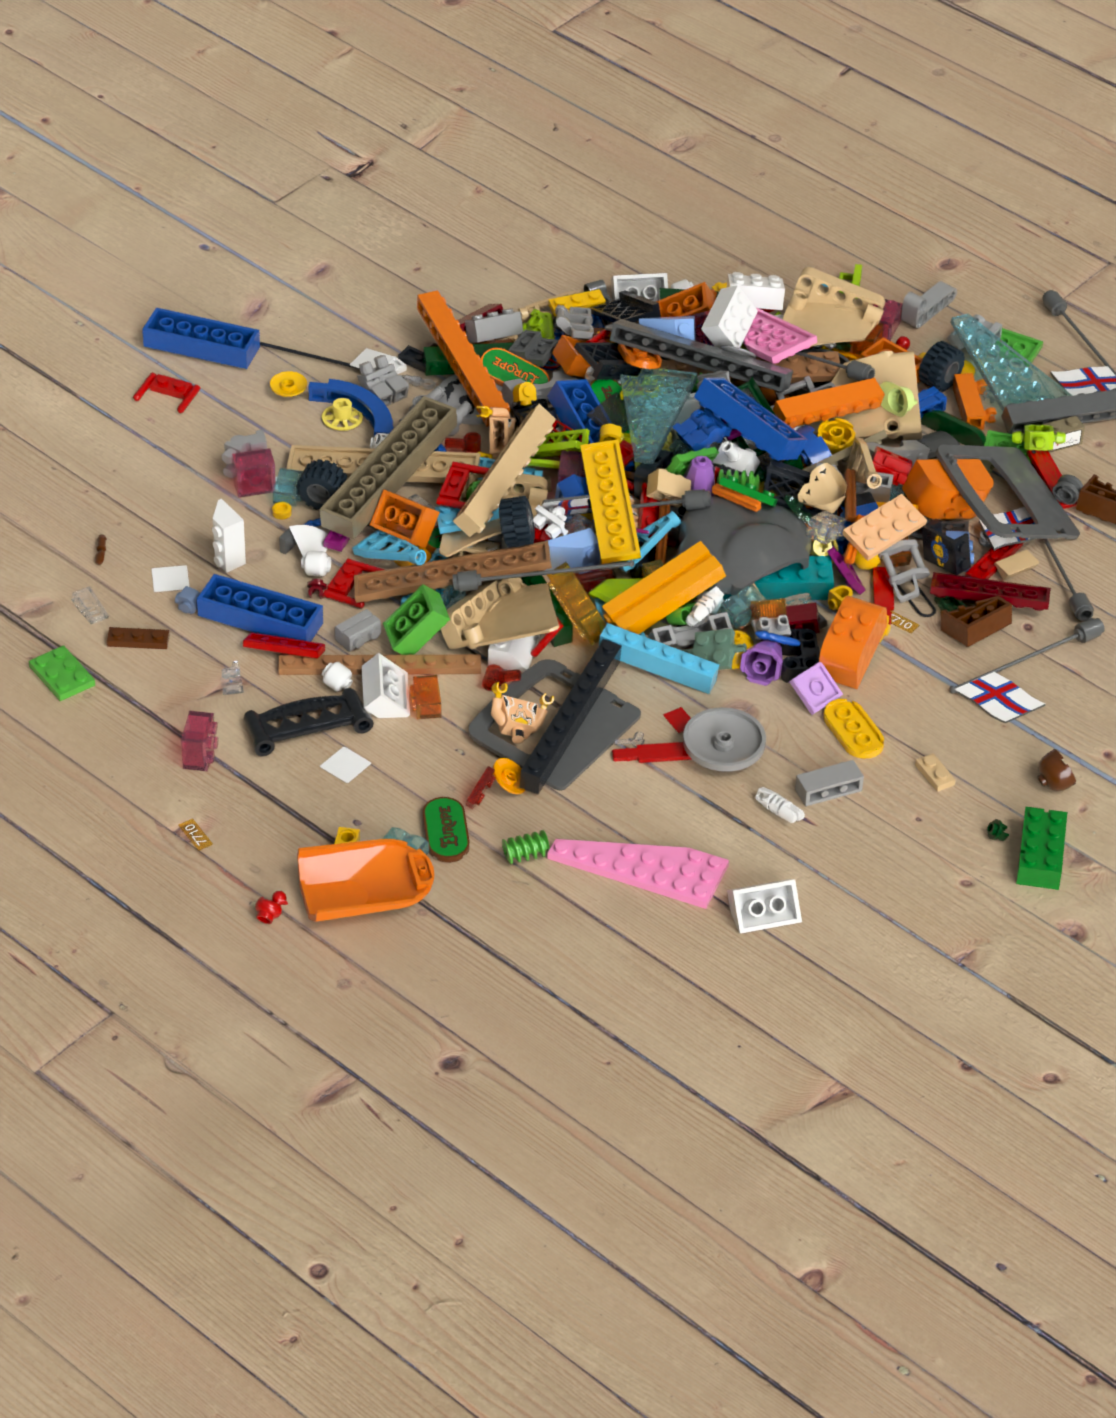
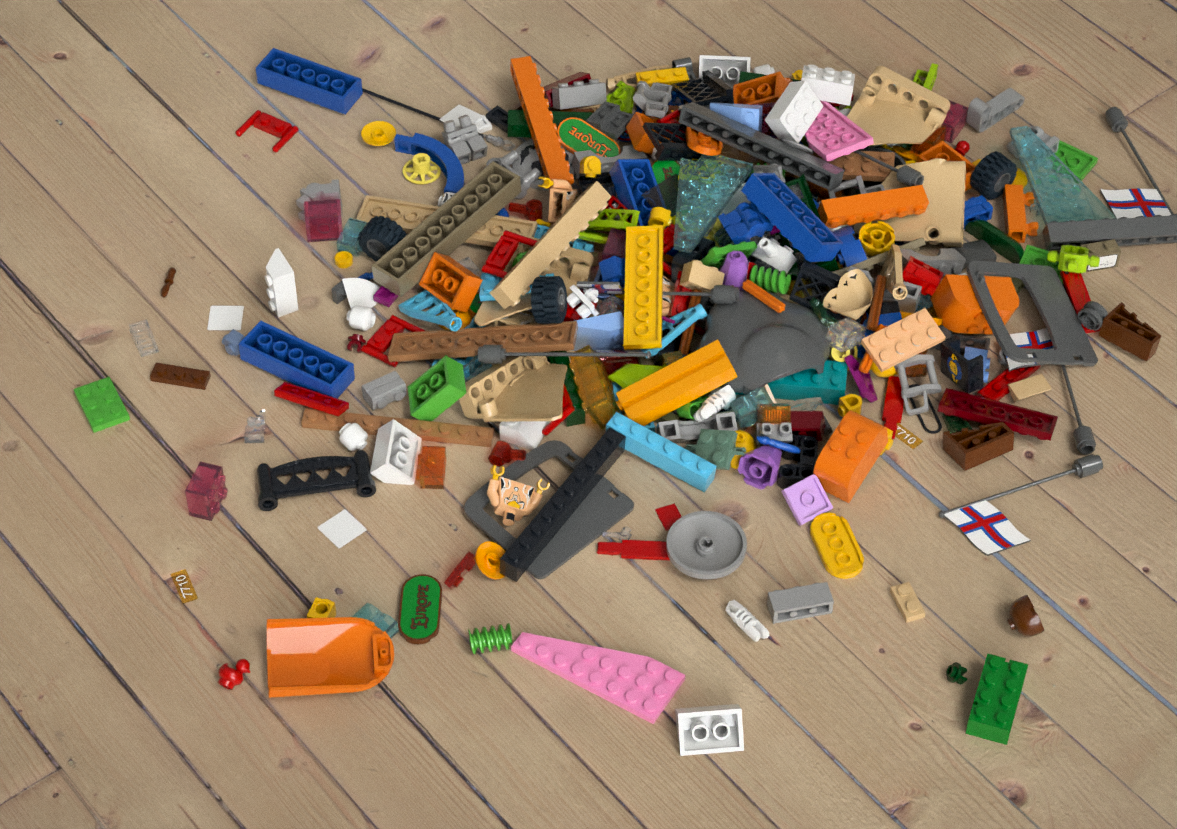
camera: 10 degrees right, 5 degrees up
(749, 490) = (776, 290): green plate -> none
(897, 398) = (941, 208): yellowish green piece -> none

